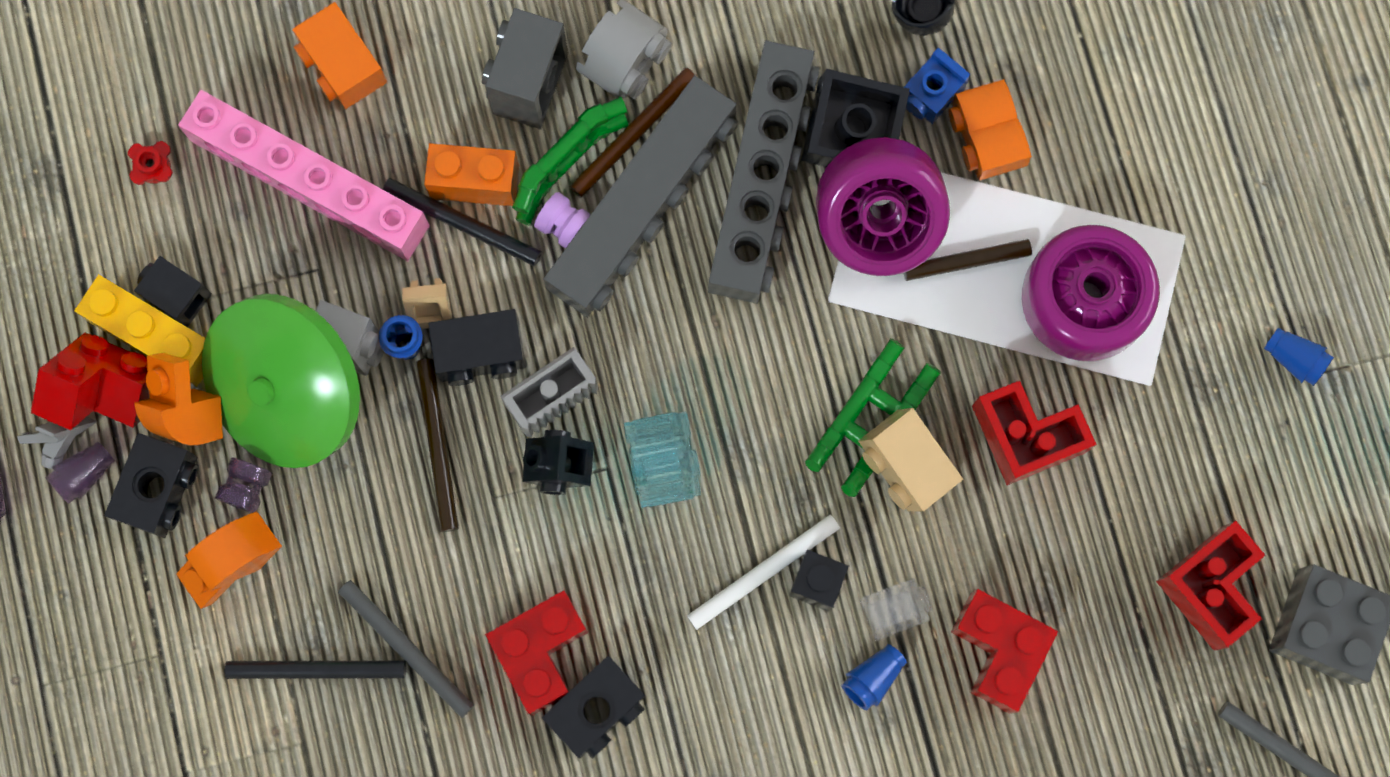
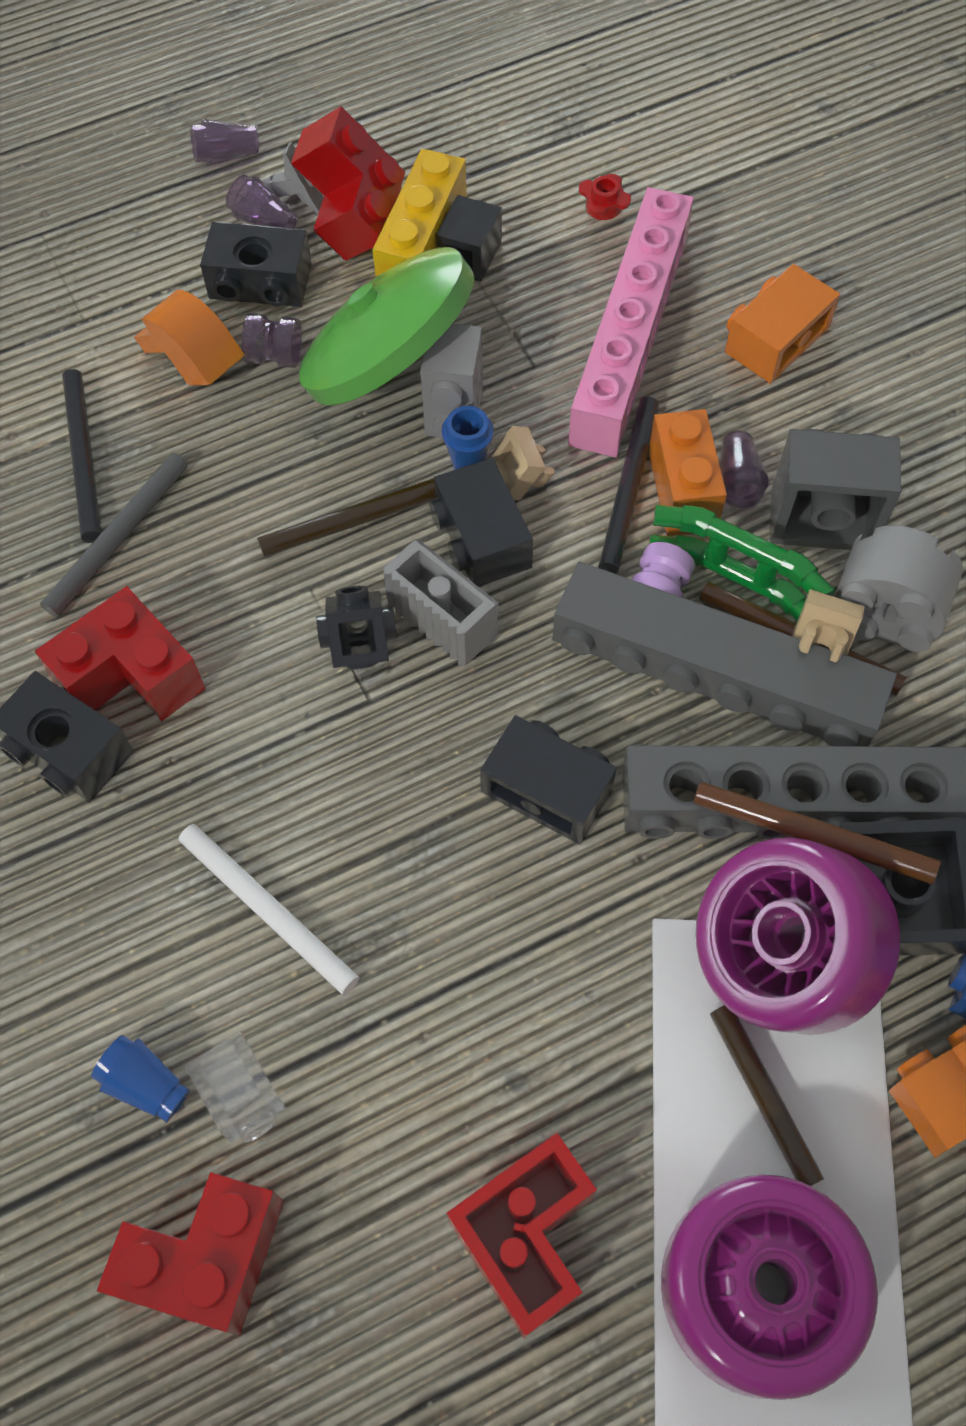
camera: 80 degrees right, 15 degrees down
(174, 407) = (327, 251): orange brick -> none
(474, 130) = (742, 470): none -> clear purple cone
(645, 112) = (828, 623): none -> tan tile
(662, 459) = (380, 739): clear light blue brick -> none
(712, 345) = (548, 778): none -> black brick
(812, 171) = (811, 829): none -> reddish brown bar
(818, 580) = (259, 972): black brick -> none
(869, 391) = (539, 995): green piece -> none
(909, 461) = (445, 1061): tan brick -> none

